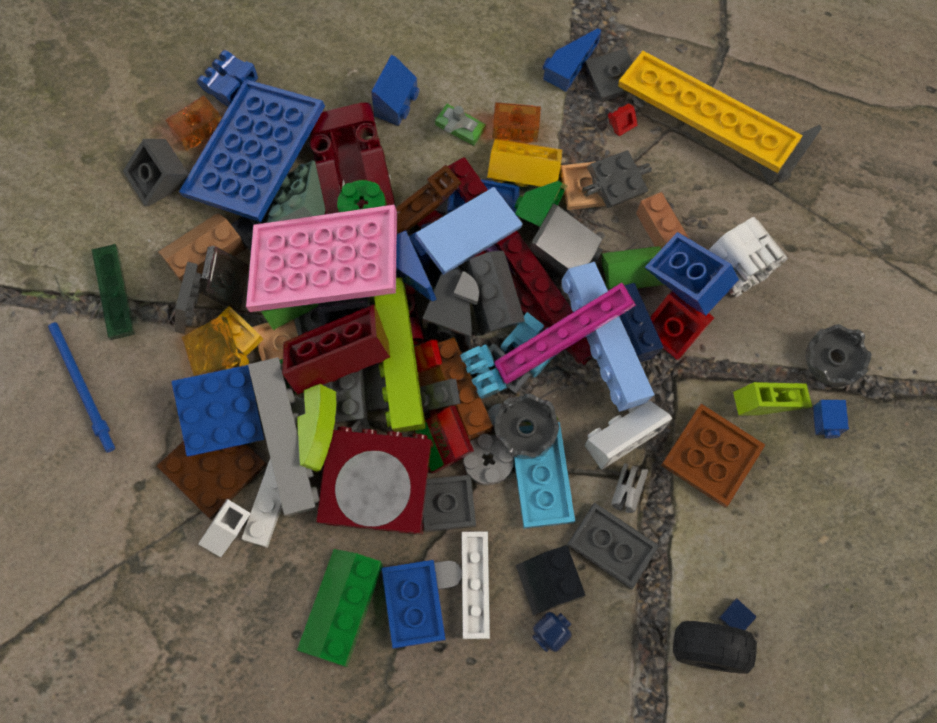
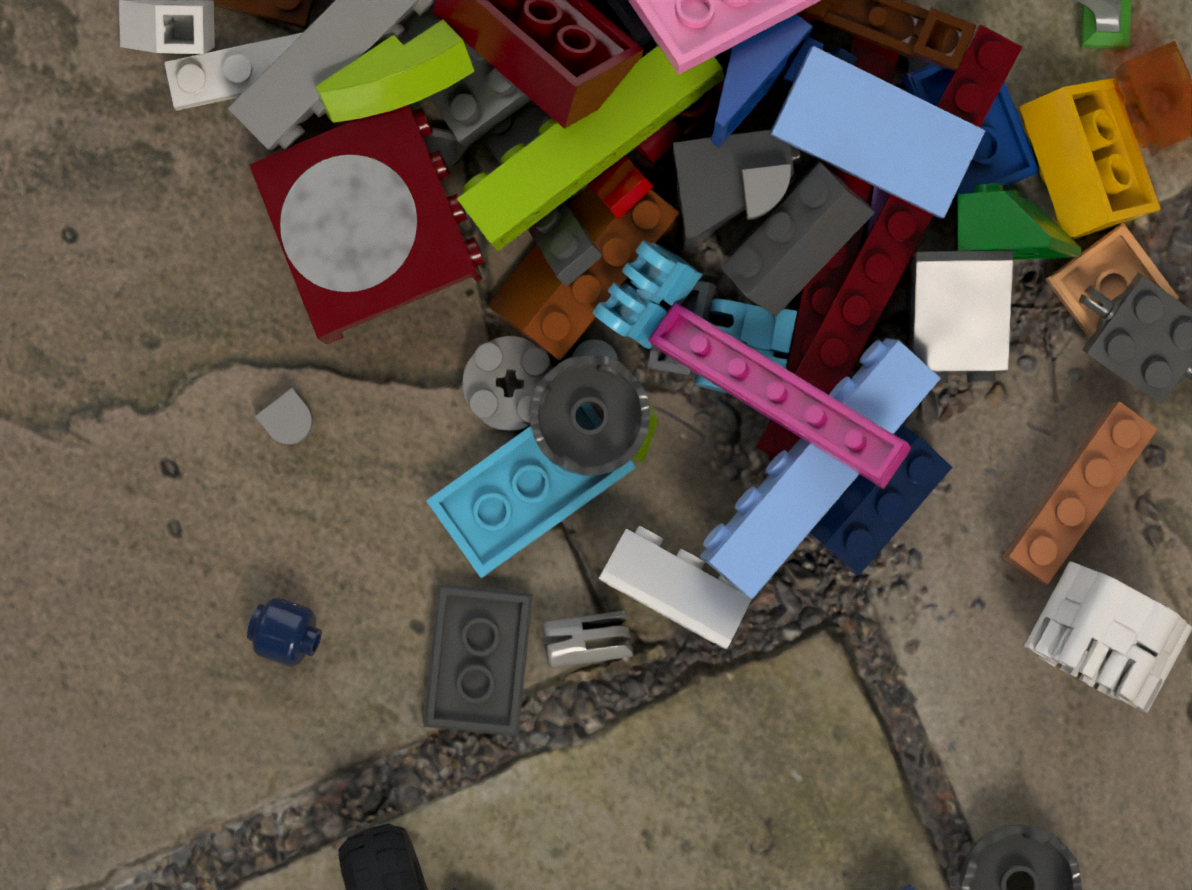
camera: 60 degrees right, 15 degrees up
(340, 607) = (143, 279): green slope -> none
(413, 604) = (209, 390): blue plate -> none
(448, 439) = (505, 296): tile -> none
(449, 504) = (399, 358): dark grey plate -> none
(475, 585) = (292, 471): white plate -> none
(550, 580) = (363, 587): black slope -> none
(629, 267) = (991, 455): bright green piece -> none
(678, 324) = (930, 581): red slope -> none
(693, 273) = (1016, 557): blue slope -> none
(713, 455) = (721, 752): dark orange plate -> none
(771, 398) = (879, 807): lime slope -> none

